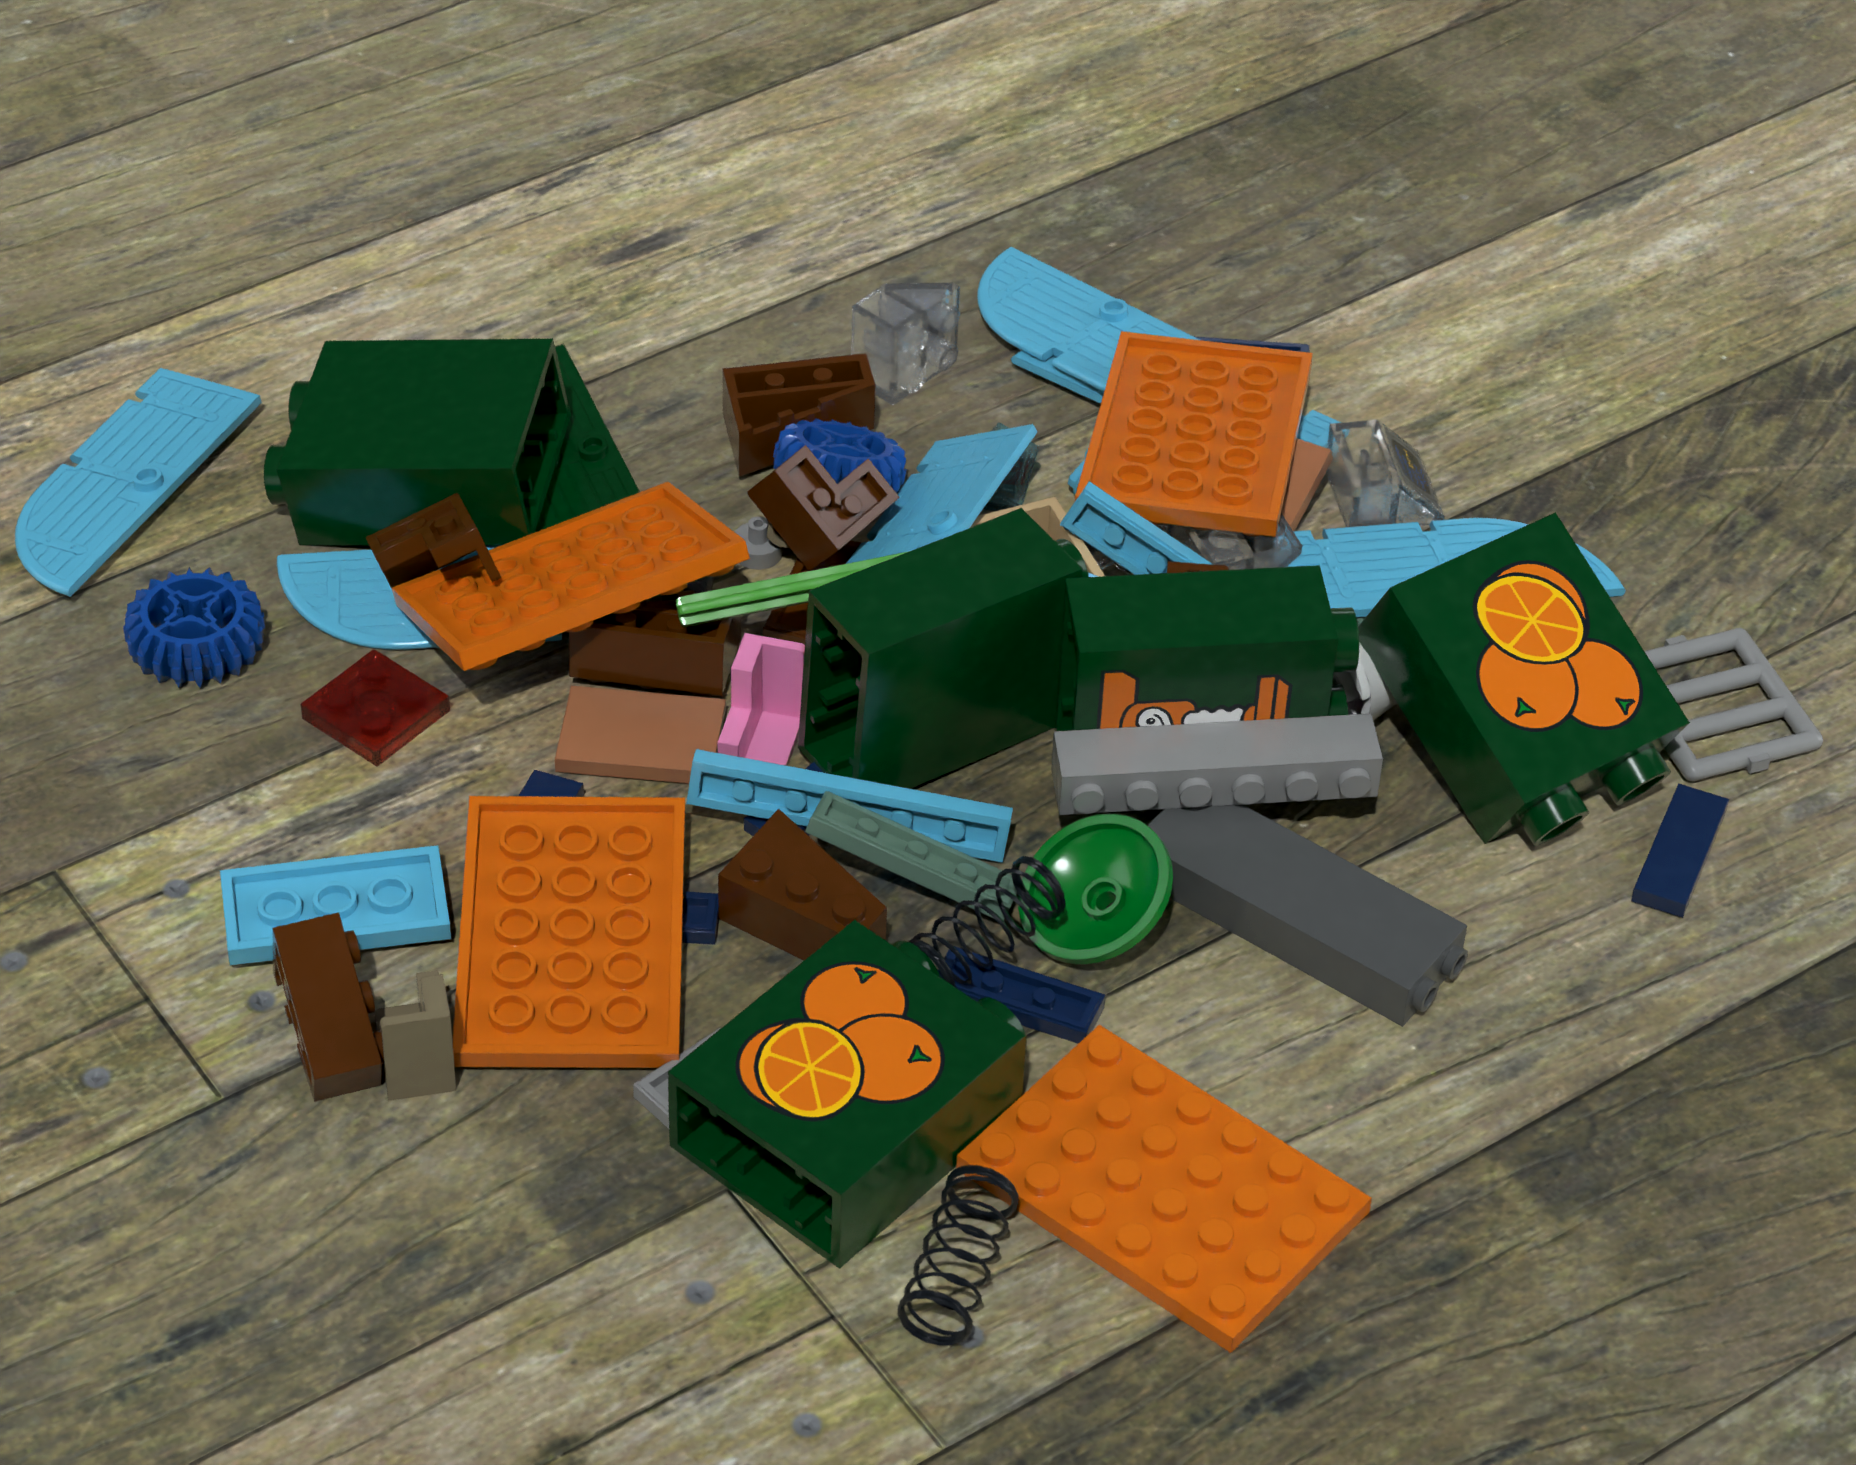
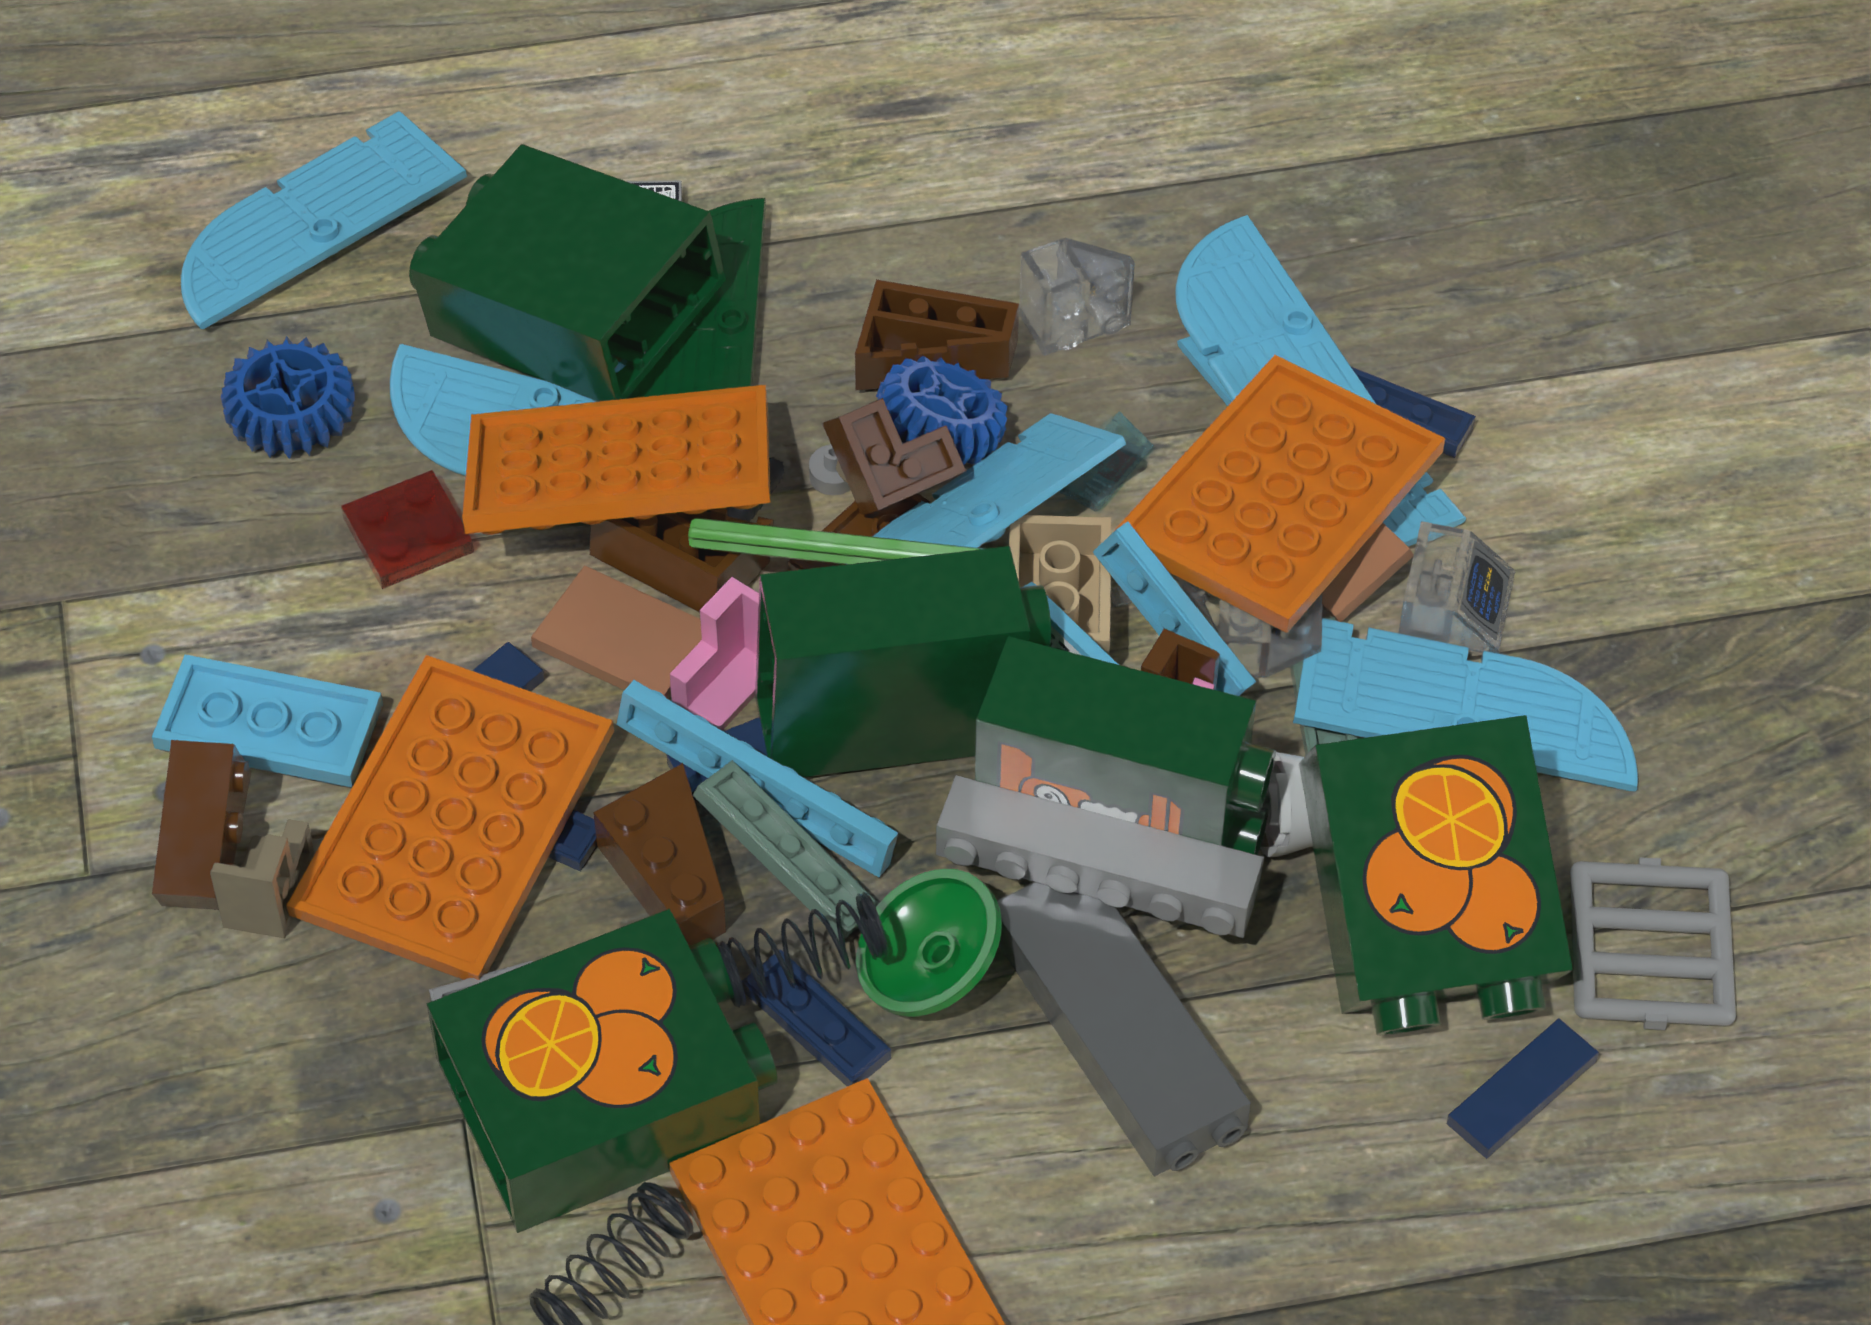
camera: 25 degrees right, 10 degrees up
(429, 542) = (519, 385): reddish brown panel -> none

